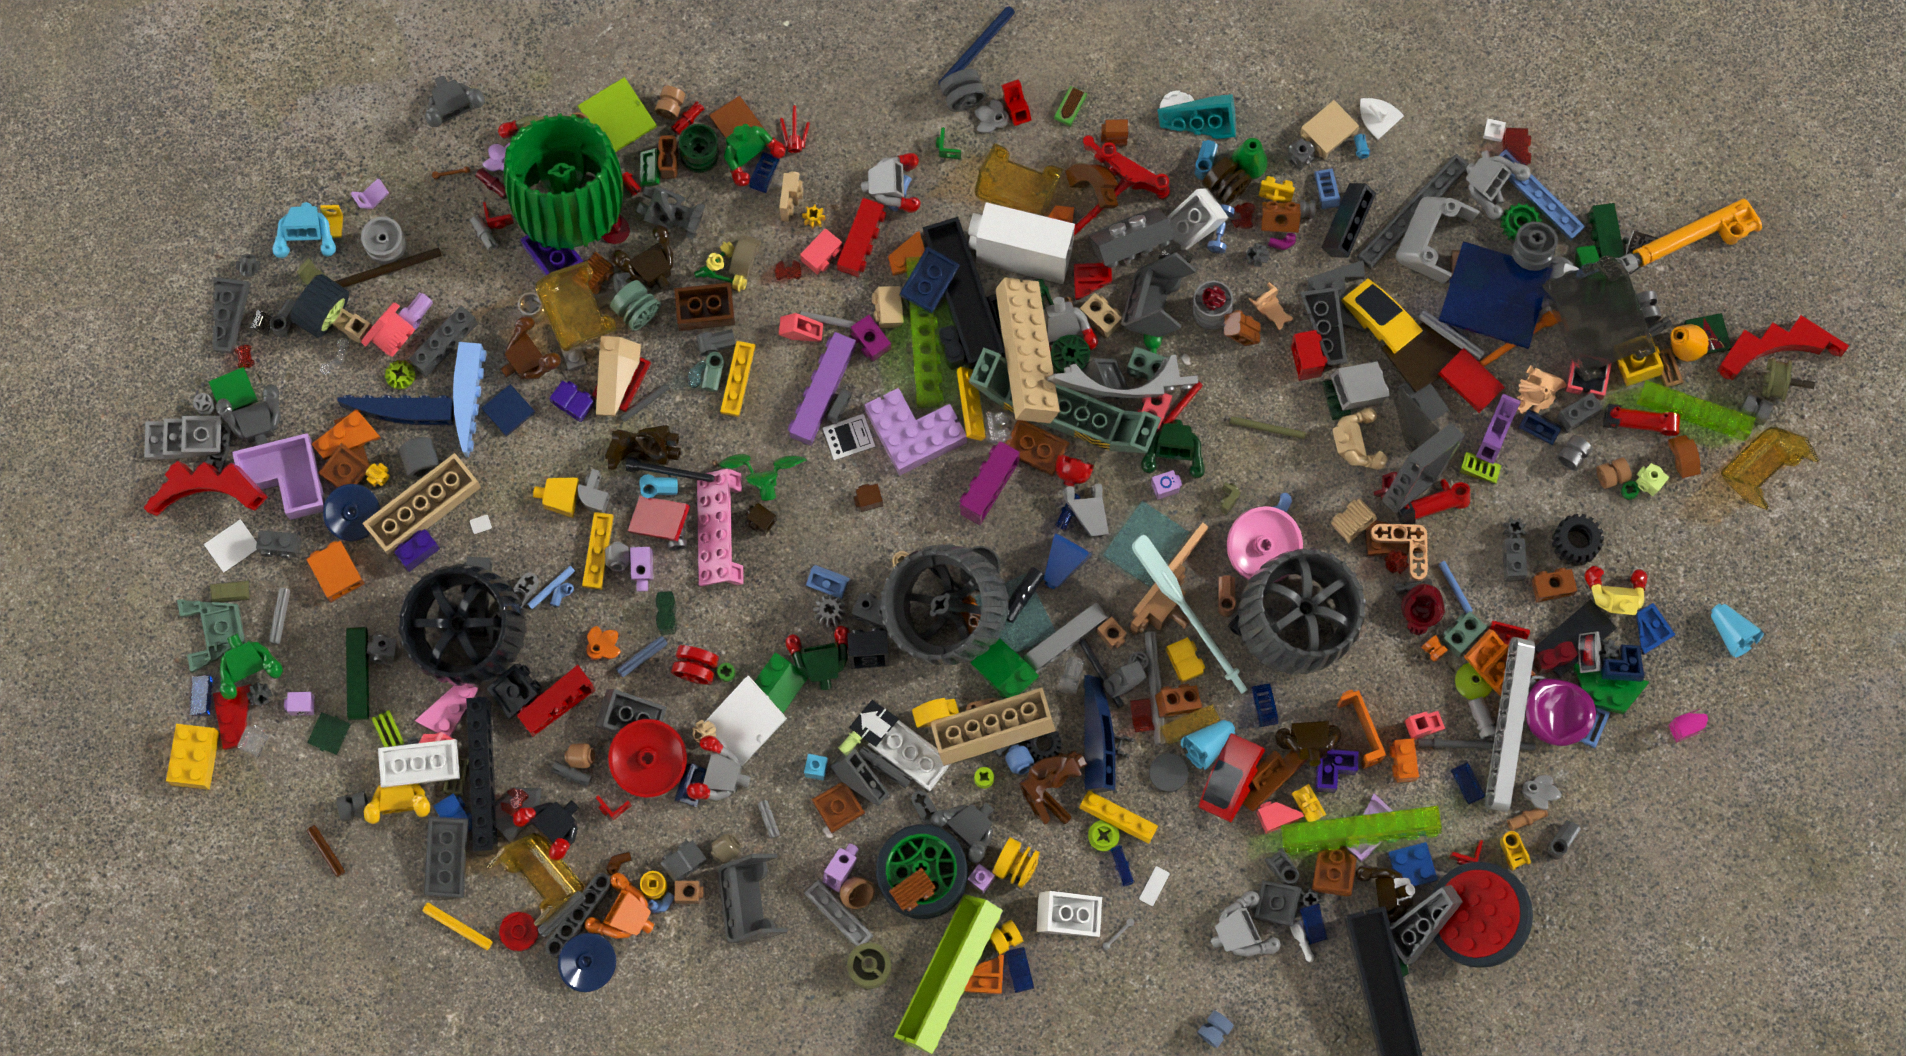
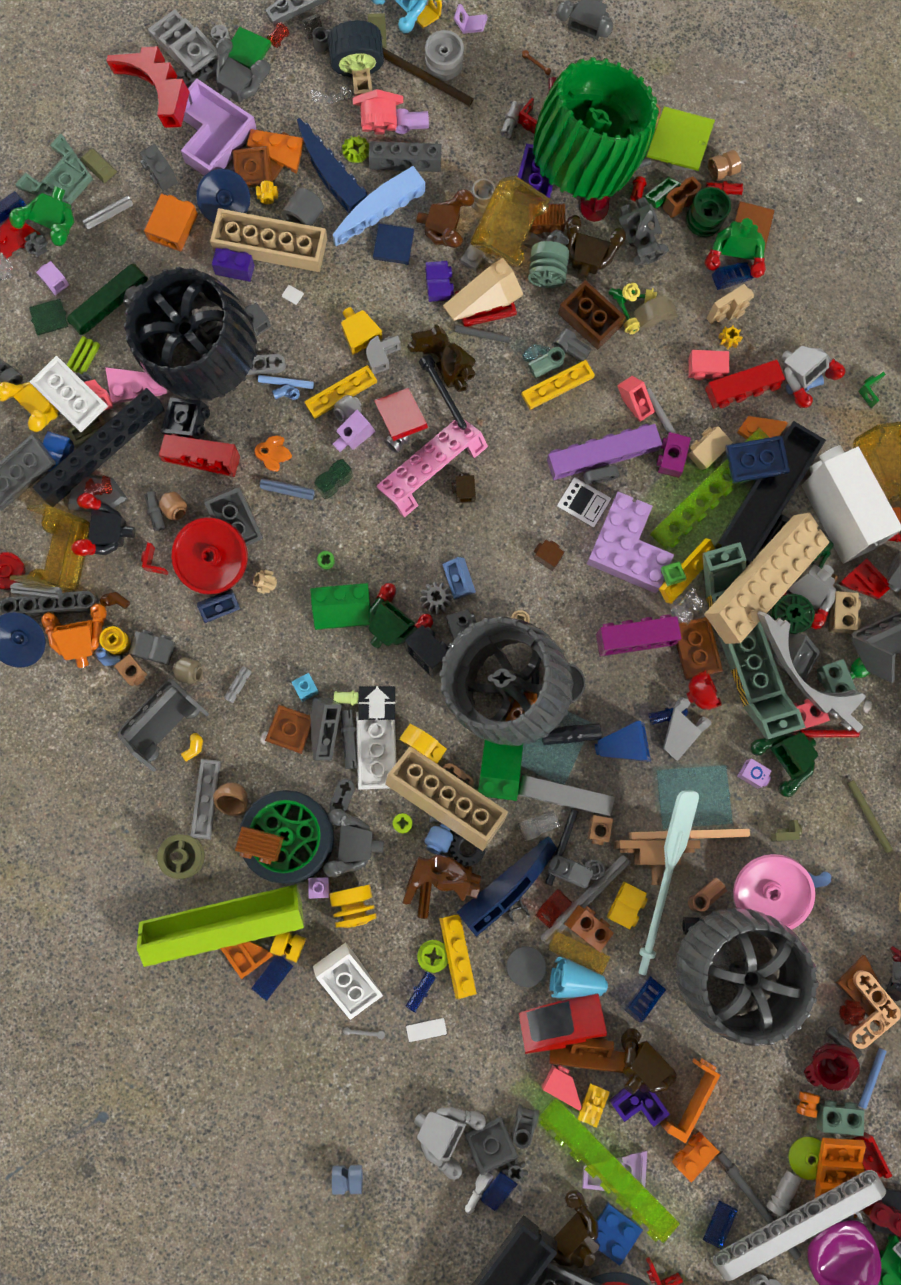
camera: 45 degrees right, 5 degrees up
(231, 545) = (132, 139): white sticker -> none
(660, 486) = (426, 394): medium azure piece -> none
(694, 665) = (307, 532): red wheel -> none
(721, 775) = (242, 621): light grey torso -> none
(746, 720) = (297, 605): white piece -> none
(764, 480) = (494, 464): green plant -> none
(788, 272) = (667, 350): clear red piece -> none
(792, 891) = (195, 747): none -> yellow arm
(794, 143) = (773, 278): red plant -> none
(840, 867) = (232, 770): lavender torso -> none
(950, 345) = (720, 518): black brick -> none
(964, 416) = (673, 573): none -> bright green tile
(1334, 872) = (555, 1174): dark orange tile -> none
(1353, 520) = (855, 949): tan brick -> none
(1424, 724) = (737, 1149): coral brick -> none

